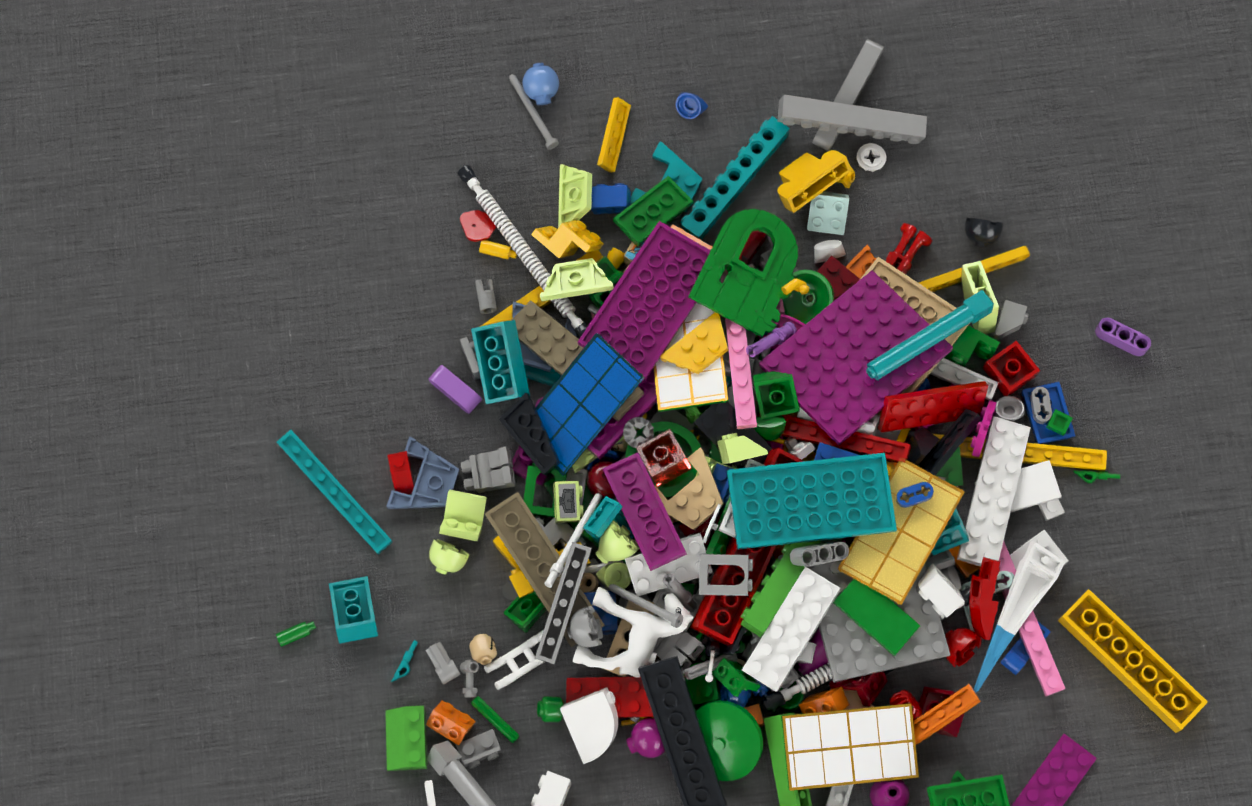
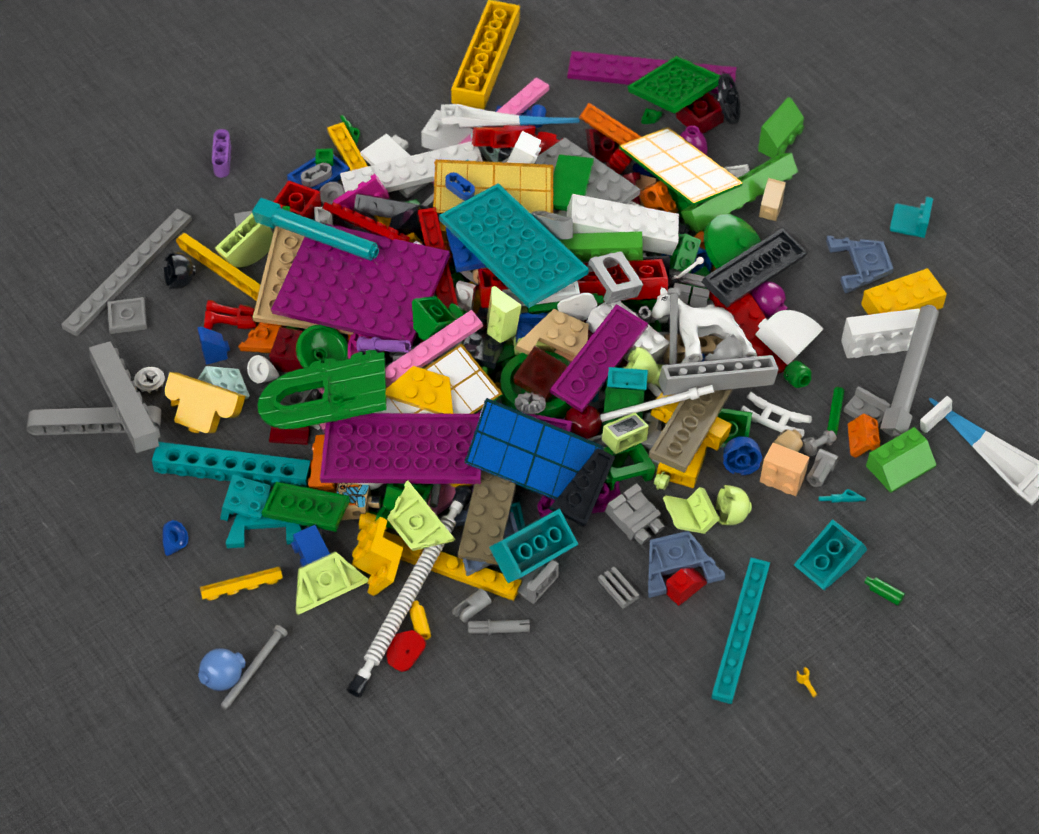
camera: 120 degrees left, 20 degrees down
(258, 514) = (804, 679): none -> yellow hand
(434, 420) = (609, 575): none -> light grey tile
(453, 620) = (784, 469): none -> light nougat brick
(454, 306) = (504, 626): none -> light grey axle
(455, 389) = (578, 583): medium lavender beam -> none
(494, 597) = (742, 455): none -> blue cylinder
(691, 171) = (245, 498): none -> teal bracket
(797, 285) = (319, 355): yellow arm -> none
(875, 218) = (212, 345): none -> blue slope
(959, 171) = (127, 315): none -> light grey tile
(1014, 194) = (126, 272): none -> light grey plate

